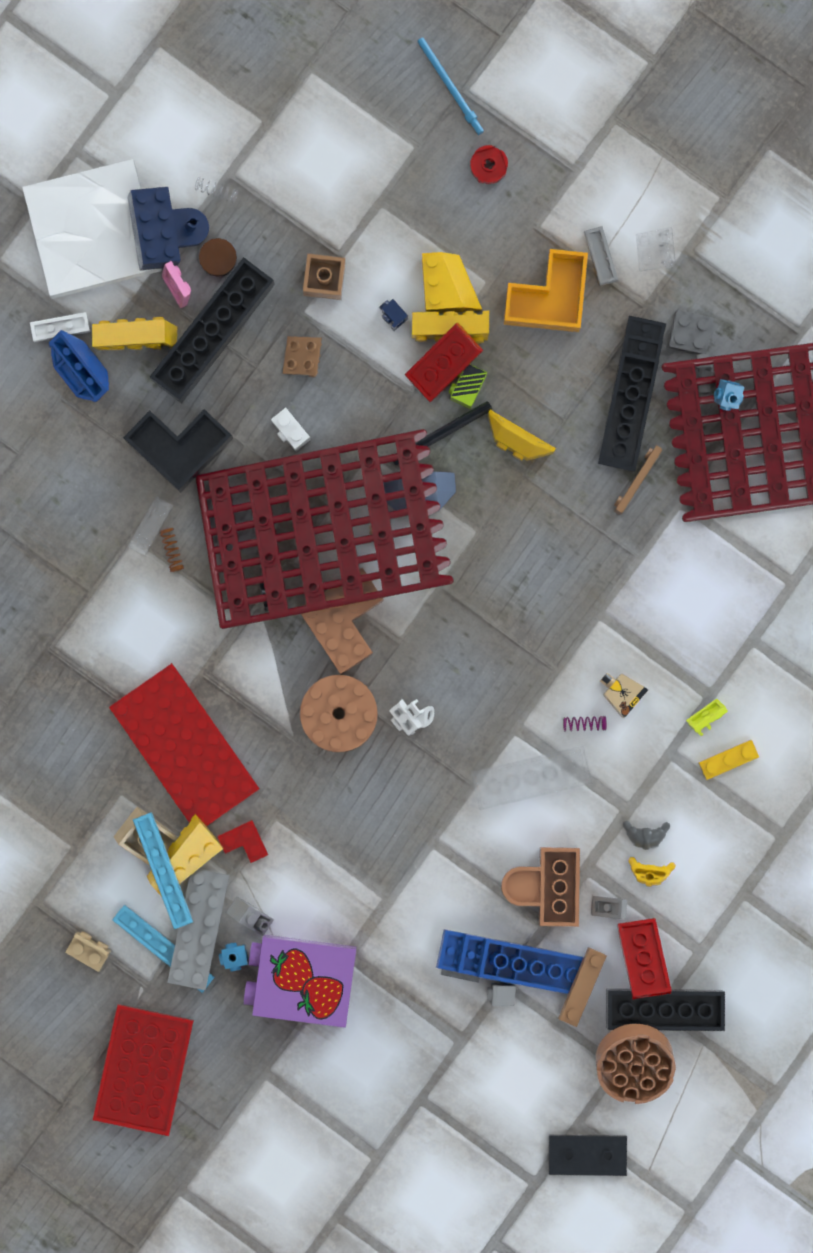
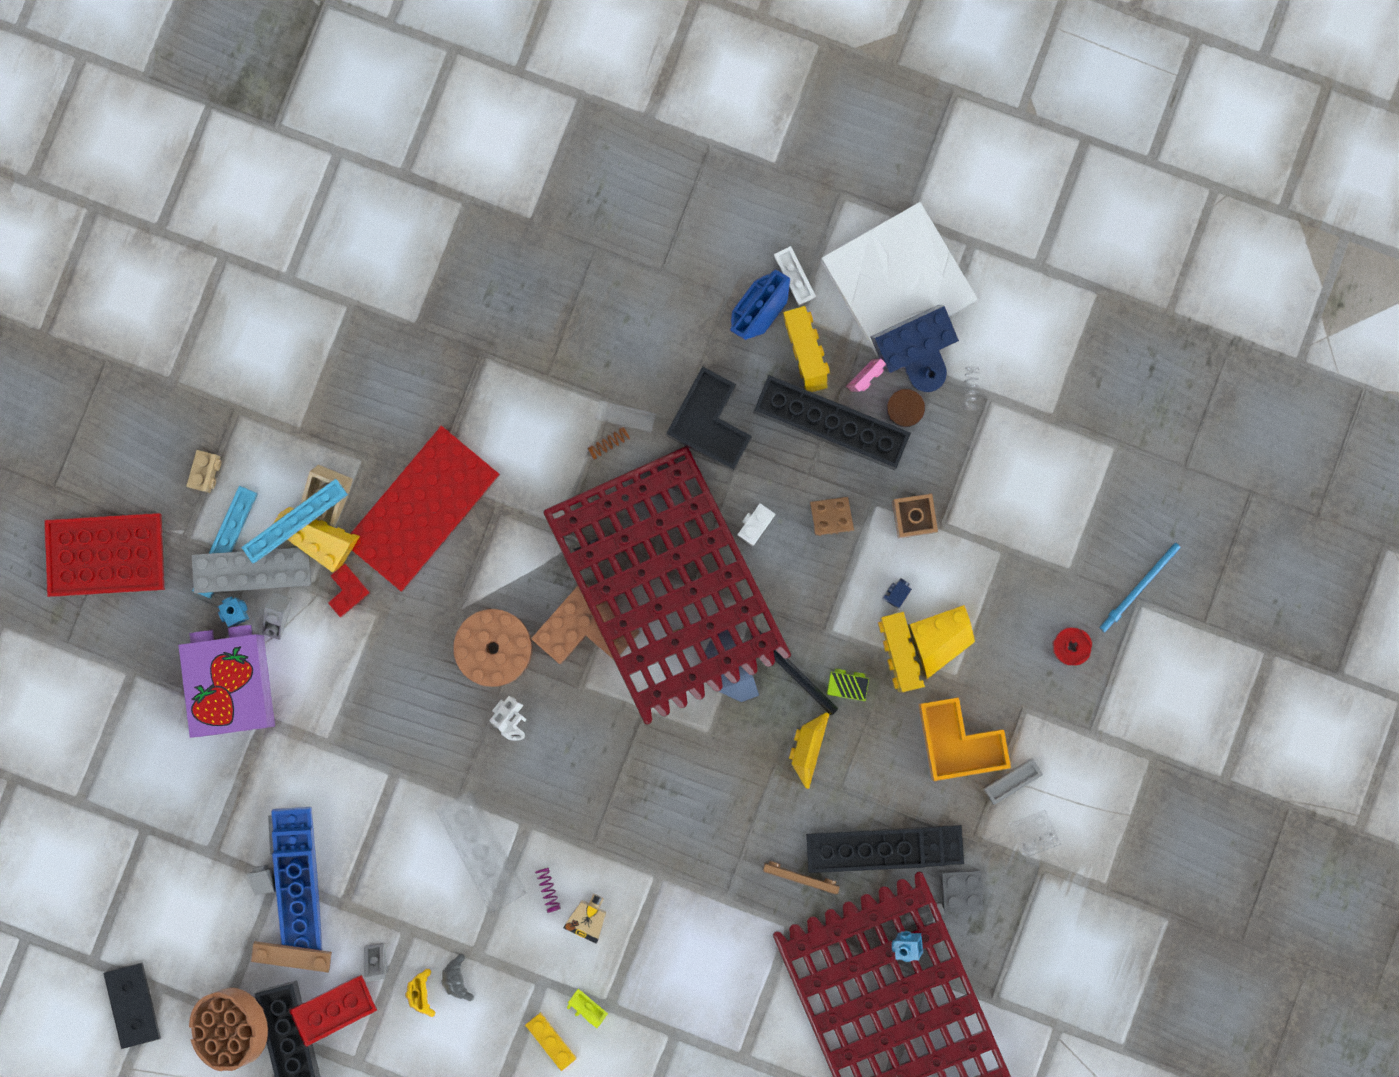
camera: 80 degrees right, 0 degrees up
(443, 362) = (863, 655): red plate -> none
(549, 886) = (378, 898): nougat brick -> none

